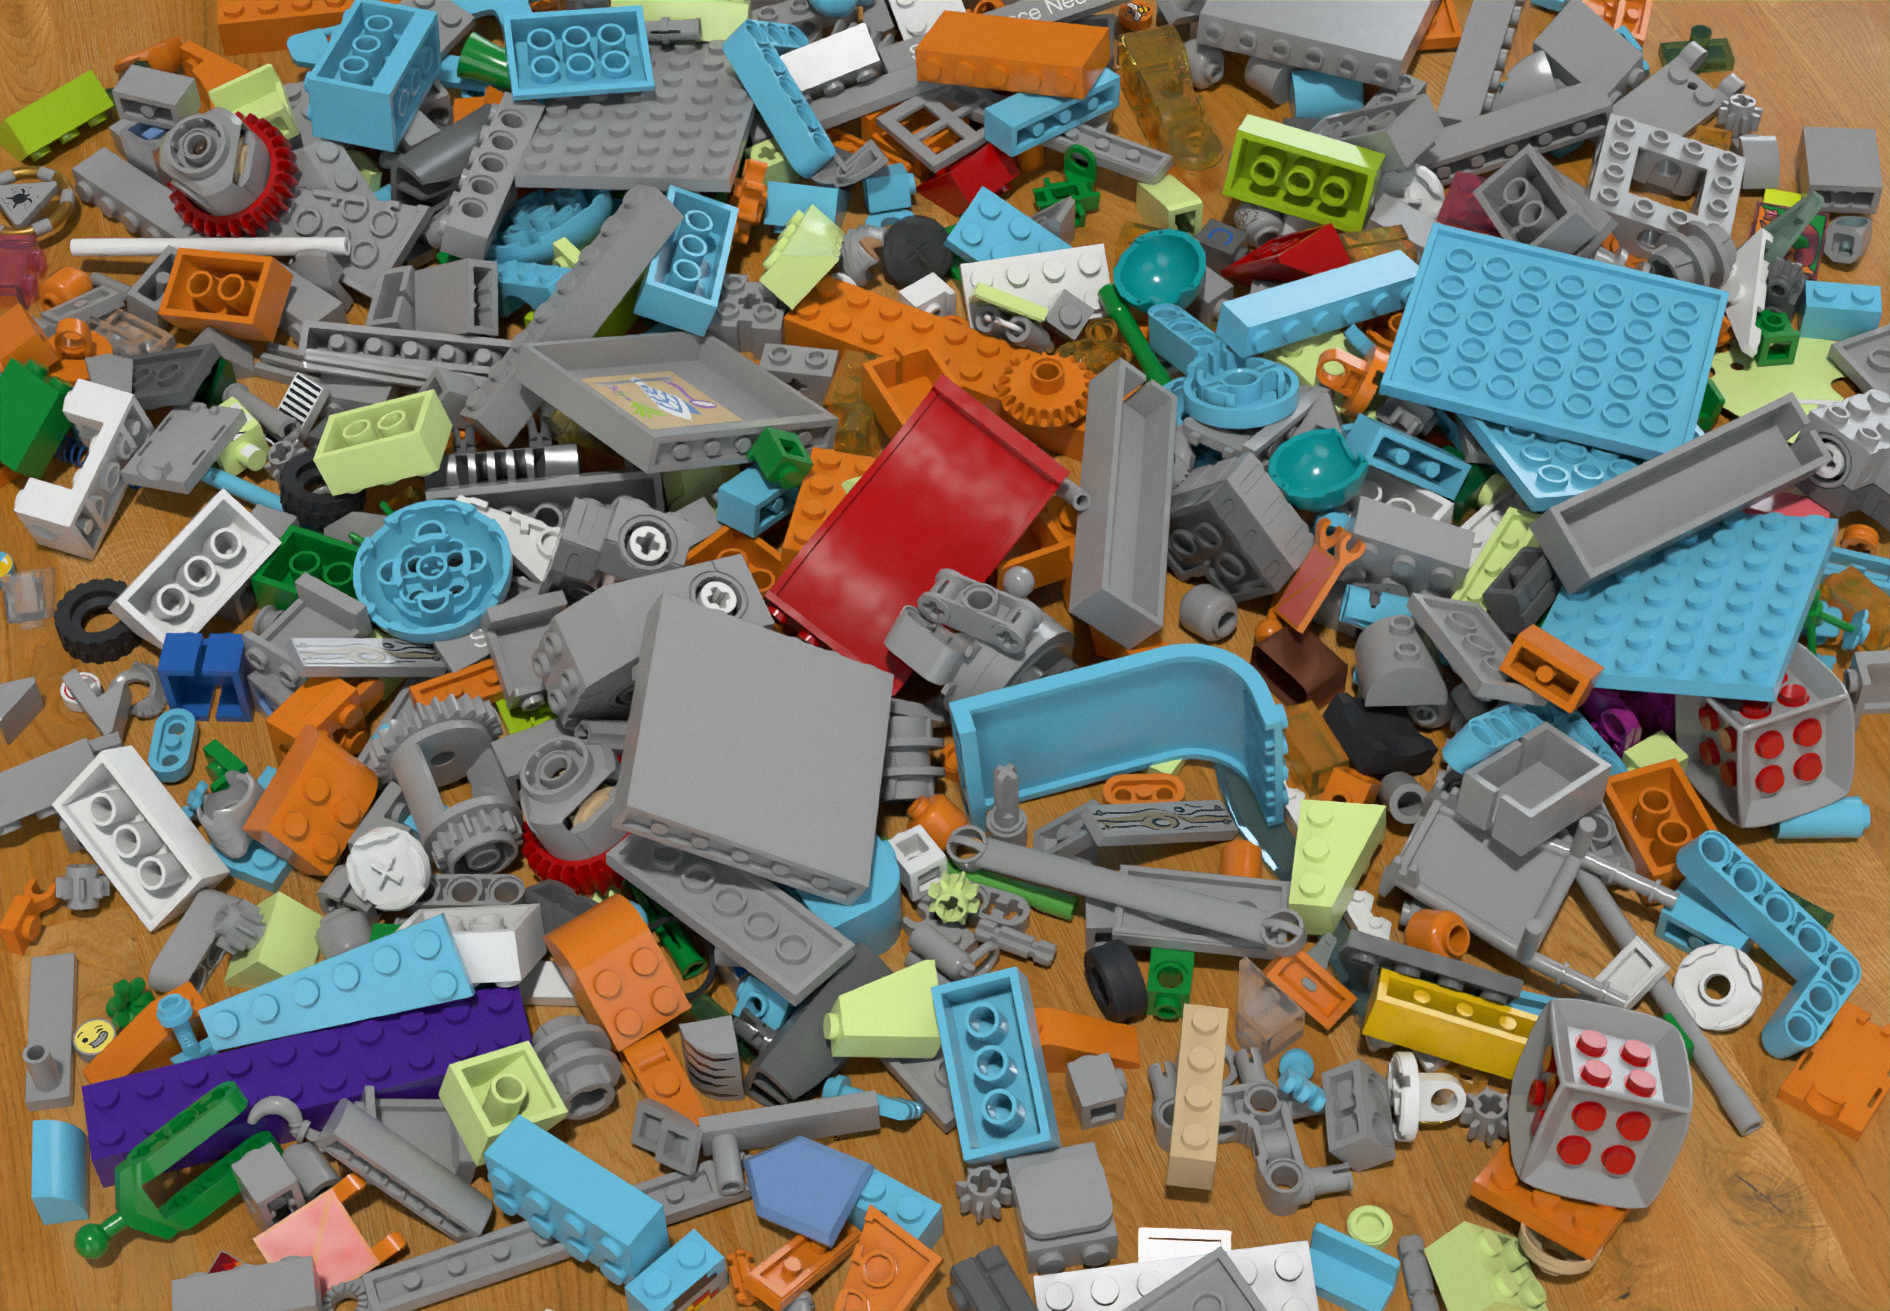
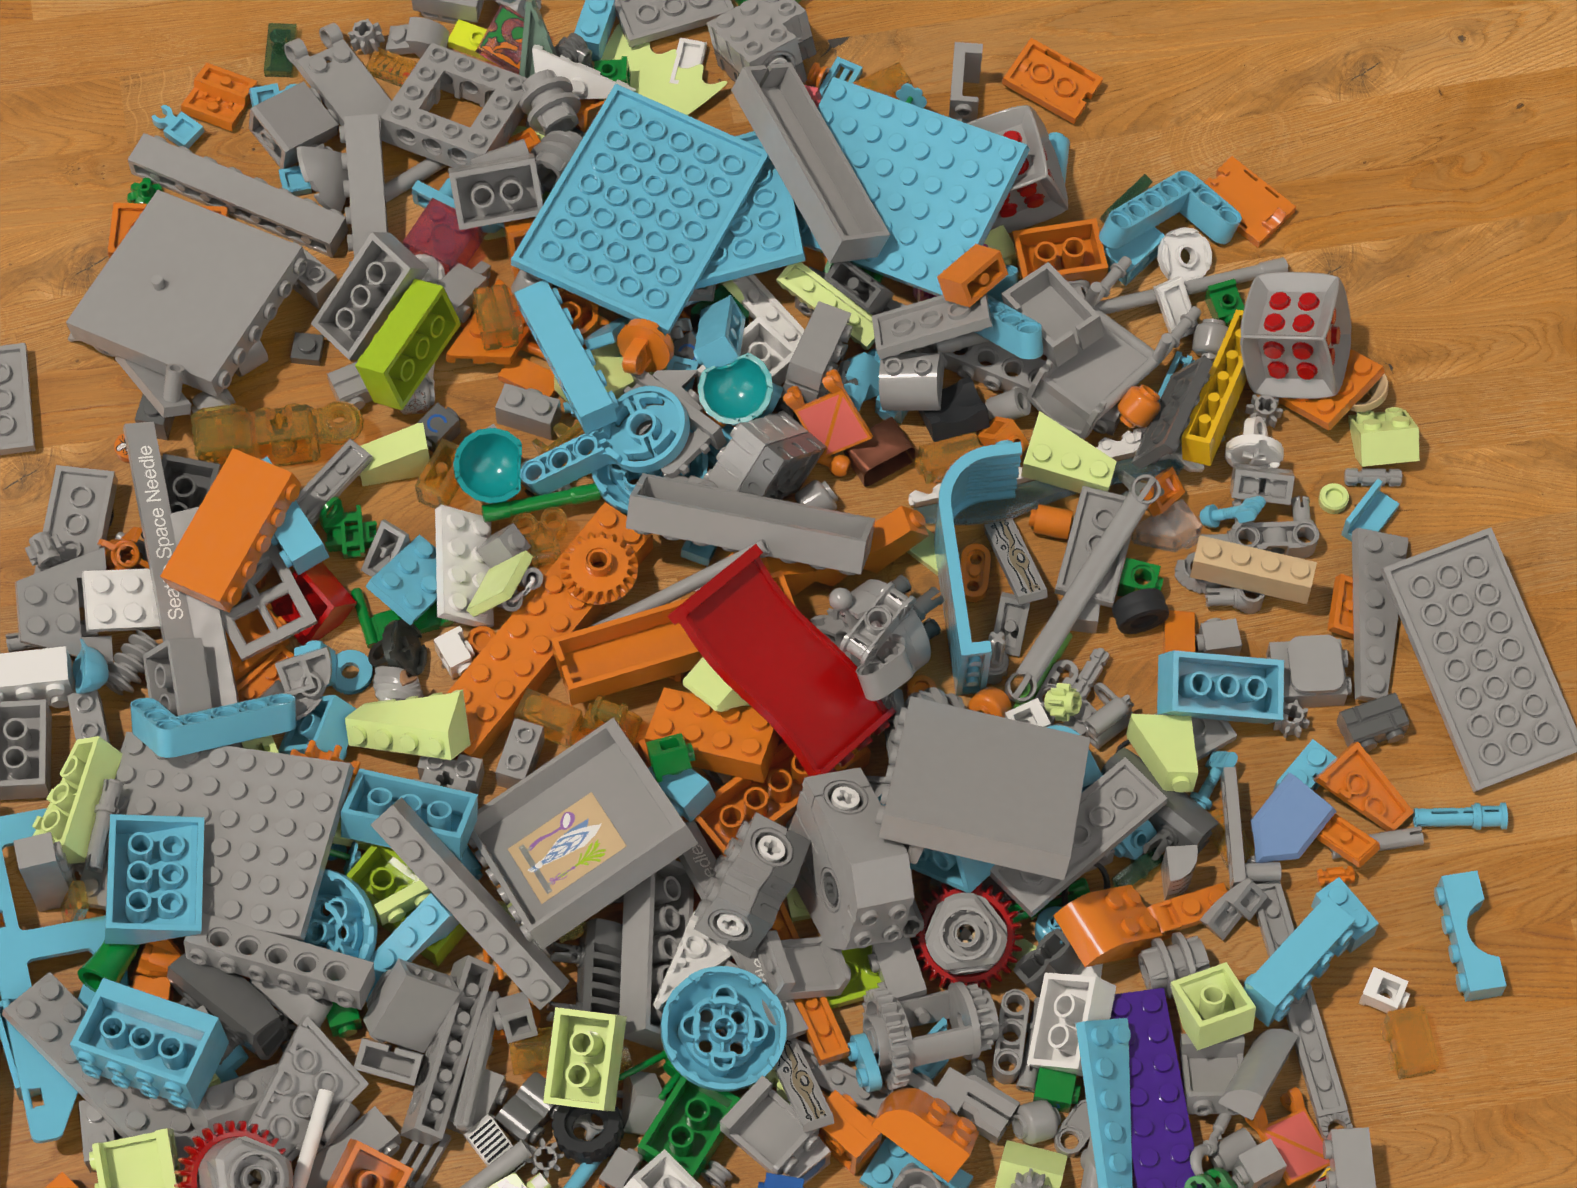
camera: 85 degrees left, 15 degrees up
(388, 868) = (1003, 1073): white tile -> none
(1291, 257) = (488, 376): red slope -> none
(1323, 94) = (278, 332): medium azure brick -> none

